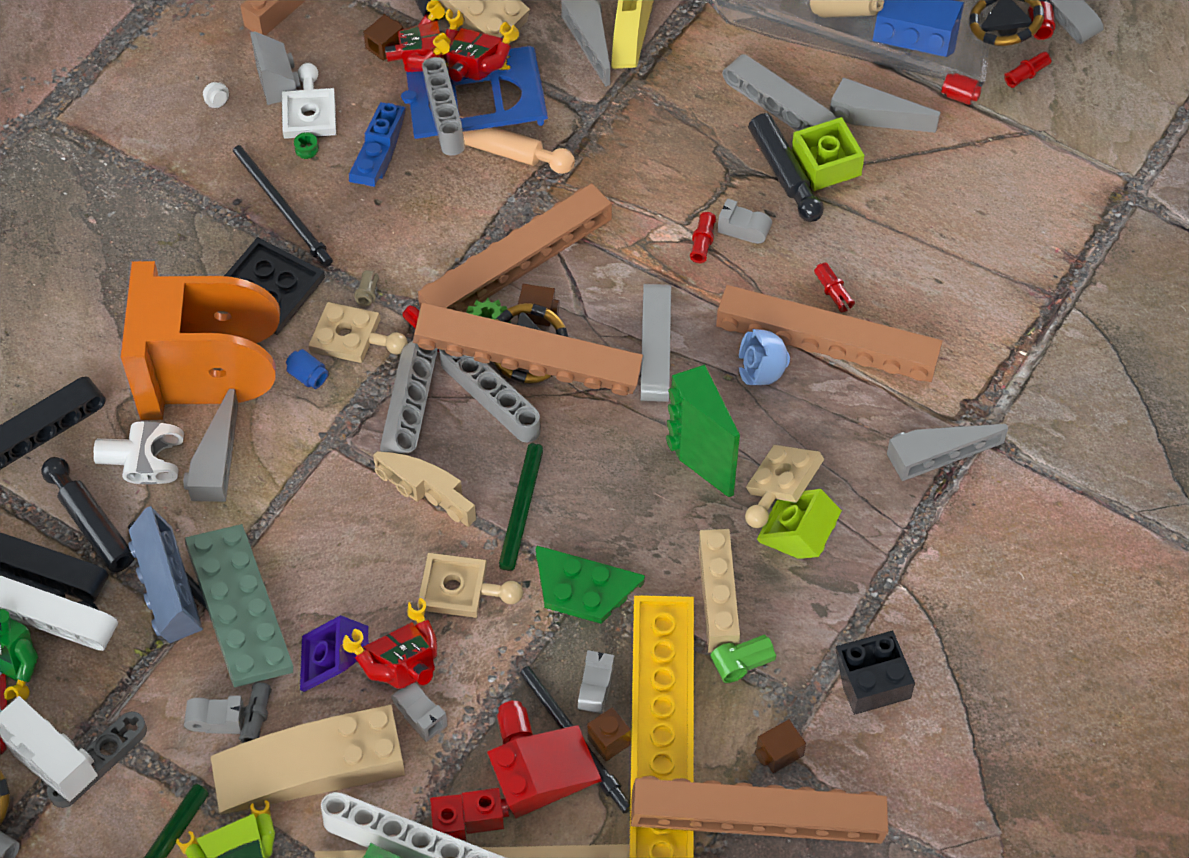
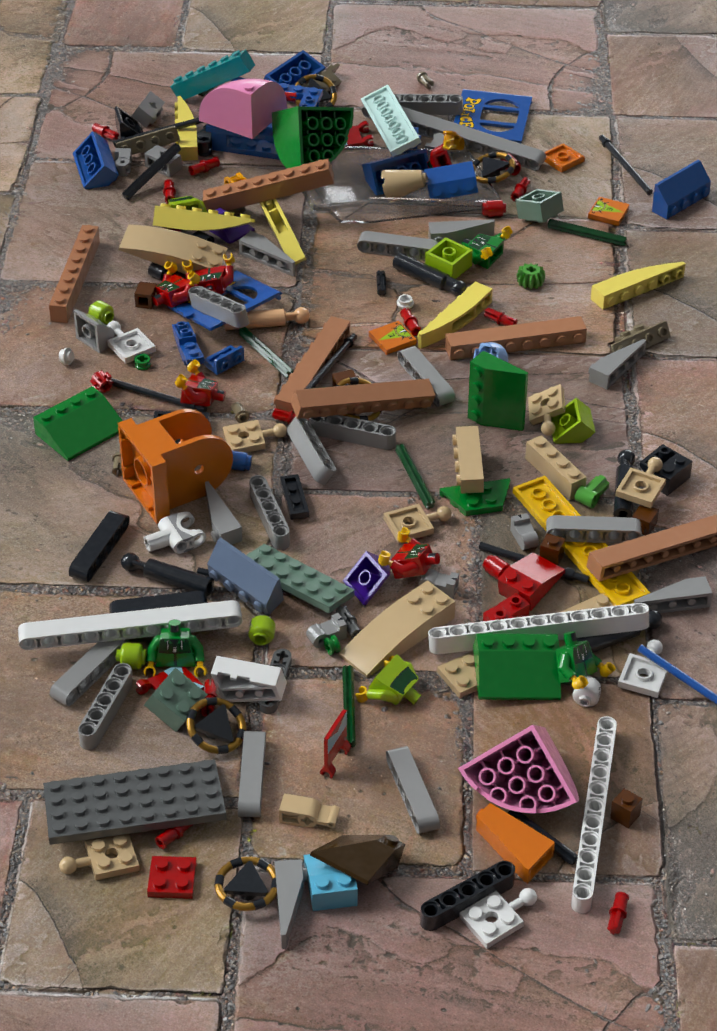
camera: 30 degrees left, 15 degrees down
(132, 669) = (261, 630): none -> lime head
(152, 213) = (77, 423): none -> green slope
(205, 740) = (332, 645): none -> green bush
(226, 157) = (101, 381): none -> red gear
(283, 487) = (269, 512): none -> light grey beam
(305, 43) = (101, 311): none -> lime head
(335, 228) = (198, 388): none -> red torso
(335, 465) = (294, 497): none -> black plate
(408, 190) = (224, 359): none -> blue bracket
(420, 479) = (354, 482): tan slope -> none
(474, 200) = (265, 351): none -> axle
(595, 234) = (348, 342): none -> black bar
(595, 524) = (469, 459): none -> tan wedge
(661, 252) = (392, 337): none -> orange tile
(686, 732) = (594, 528): none -> light grey beam
(712, 150) = (381, 282): none -> black axle
(718, 197) = (405, 301): none -> white plate
(743, 223) = (427, 307): light grey leg -> none
(775, 254) = (457, 314): none -> light yellow slope
(796, 670) = (623, 507): none -> black piece
(806, 676) = (635, 478): none -> tan plate
(898, 155) = (487, 248): none -> torso
(928, 232) = (530, 276): none -> bright green gear
(1014, 410) = (651, 334): none -> dark tan bracket
(1026, 114) = (539, 205): none -> sand green brick
(1072, 188) = (587, 232): none -> dark green axle
(1074, 313) = (635, 283): none -> light yellow slope
(1132, 37) = (563, 157): none -> orange tile
(1132, 162) = (608, 211): none -> orange tile

